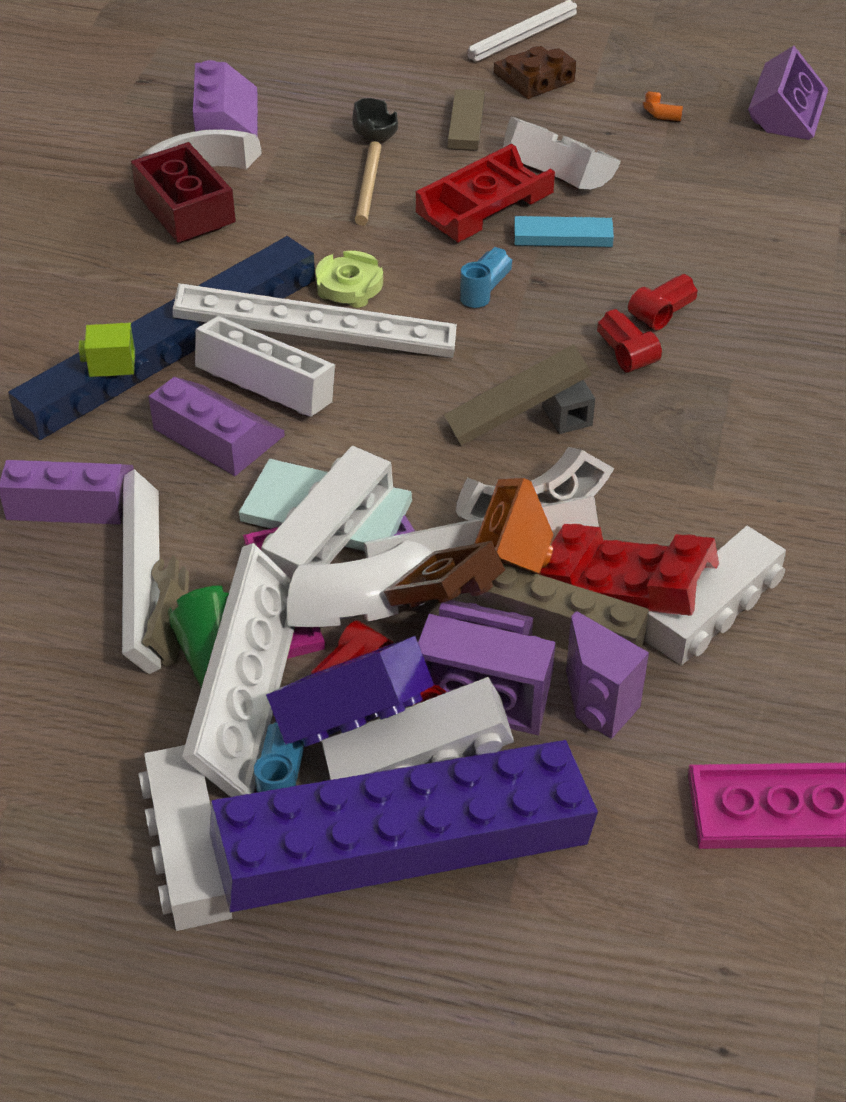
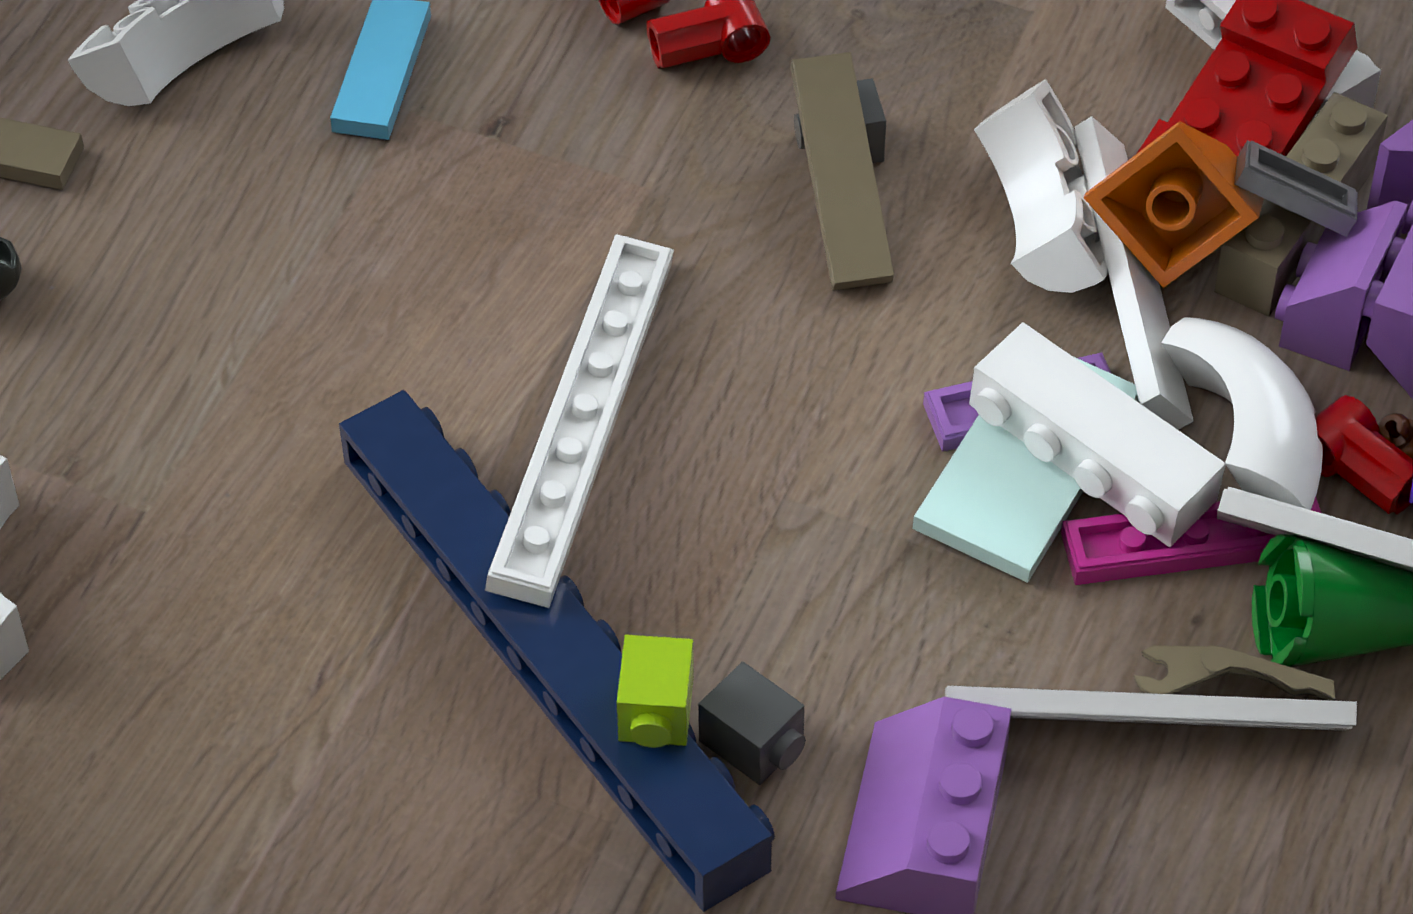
camera: 80 degrees left, 5 degrees up
(120, 411) = (752, 723): none -> dark grey brick
(183, 191) = (127, 582): dark red brick -> none
(211, 425) = (807, 589): medium lavender slope -> none
(264, 366) = (691, 495): white brick -> none
(335, 282) = (450, 394): yellowish green plate -> none
(368, 183) = (144, 314): tan bar -> none
(447, 575) = (1287, 283): reddish brown plate -> none
(479, 190) = (265, 146): red piece -> none
(482, 276) = (505, 183): dark azure piece -> none
(527, 574) = (1296, 187): none -> flat silver tile

